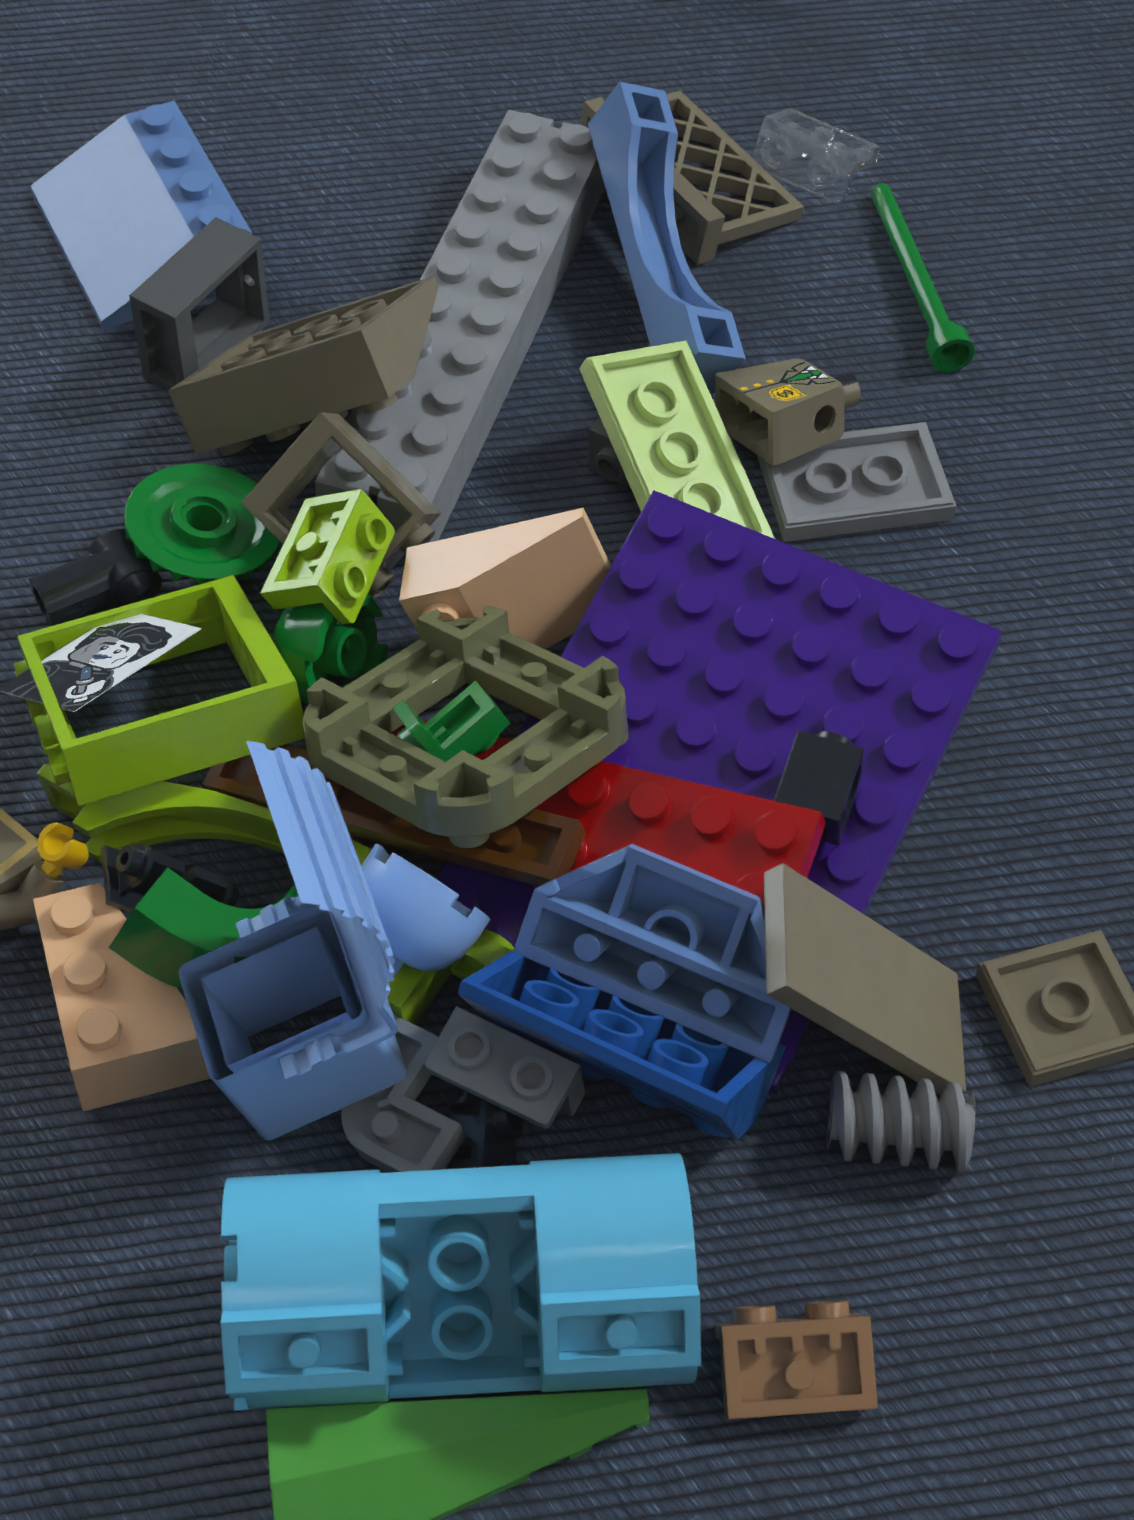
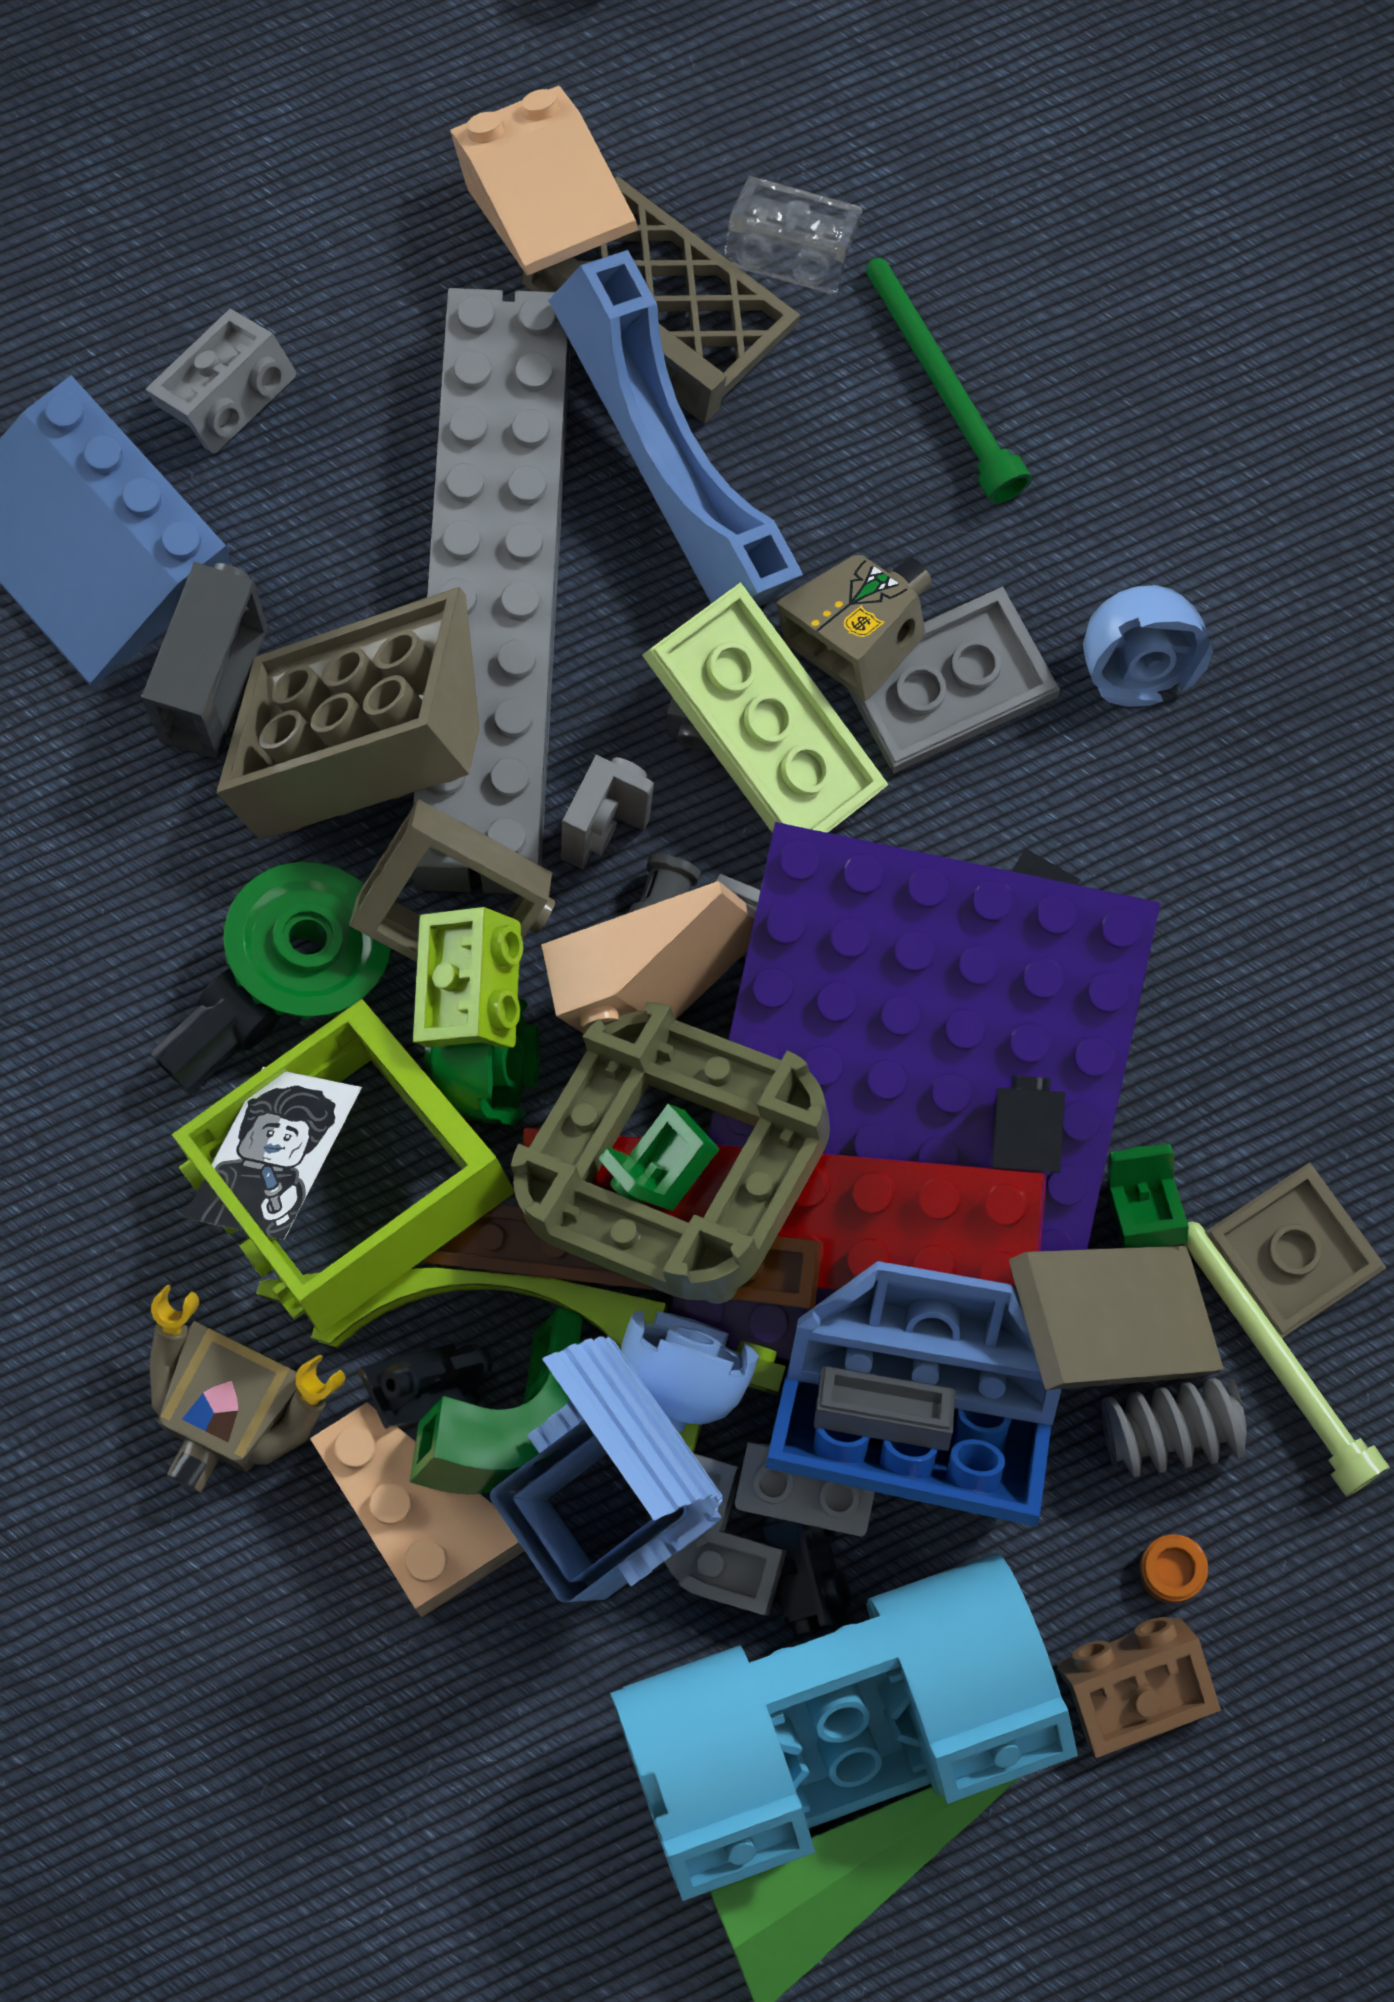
camera: 15 degrees left, 20 degrees up
(303, 149) = (223, 379): none -> light grey bracket
(505, 479) = (607, 792): none -> light grey bracket
(600, 989) = (885, 1408): none -> dark grey tile
(605, 49) = (541, 180): none -> light nougat slope
(864, 1263) = (1173, 1569): none -> orange tile
(927, 908) = (1146, 1197): none -> green bracket
(1045, 483) = (1144, 645): none -> light blue cylinder
(1082, 1209) = (1352, 1460): none -> yellowish green piece

